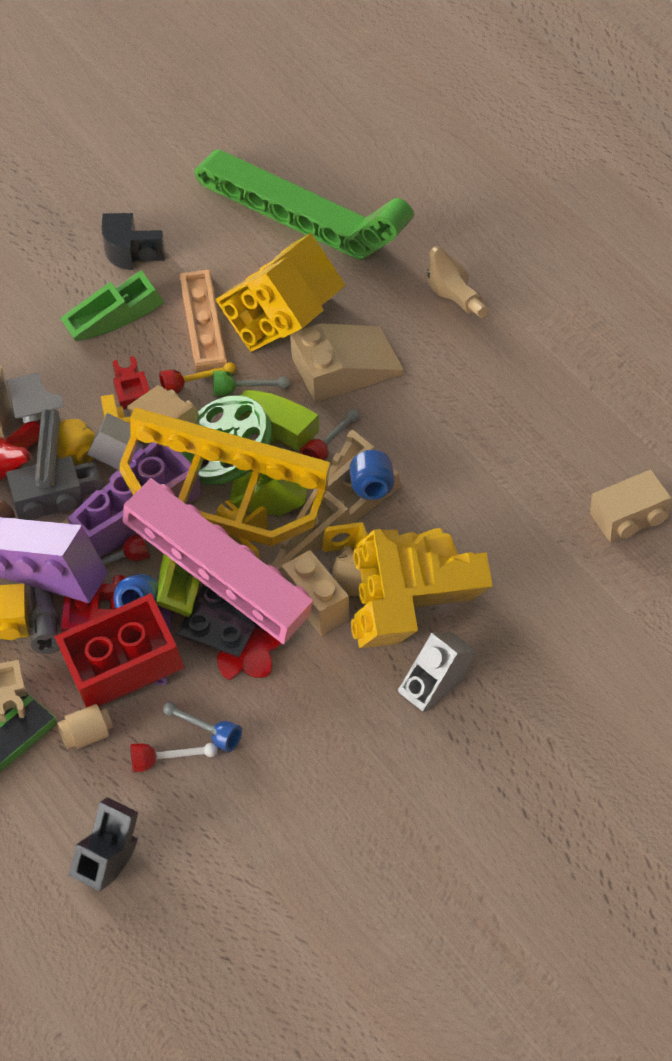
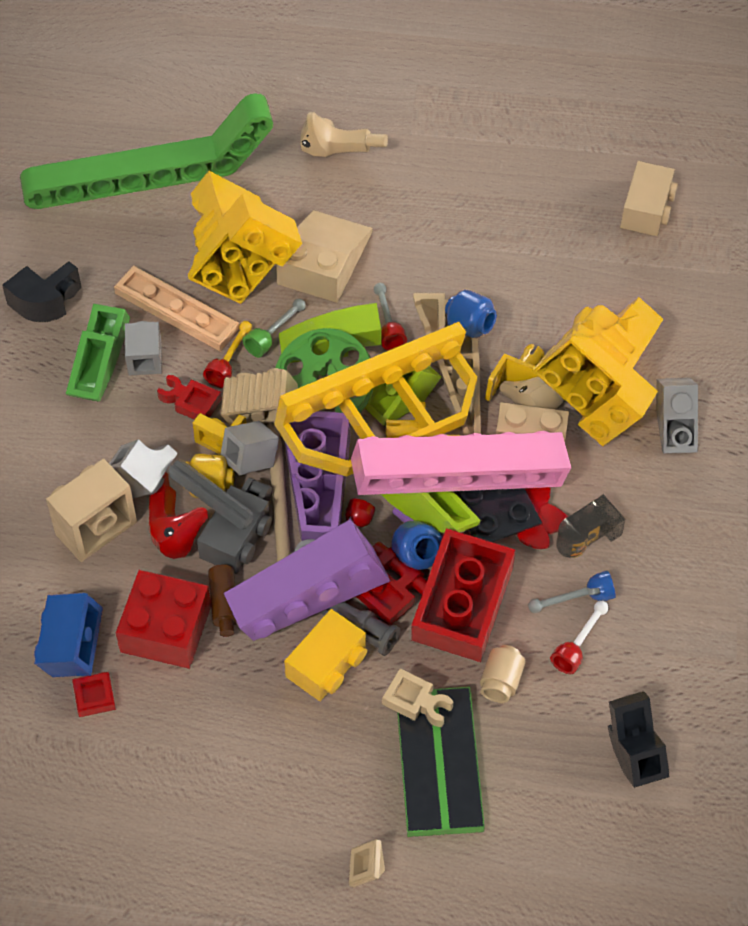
camera: 50 degrees left, 5 degrees up
(142, 327) = (143, 348): none -> light grey brick
(270, 688) = (588, 525): none -> clear smoke leg

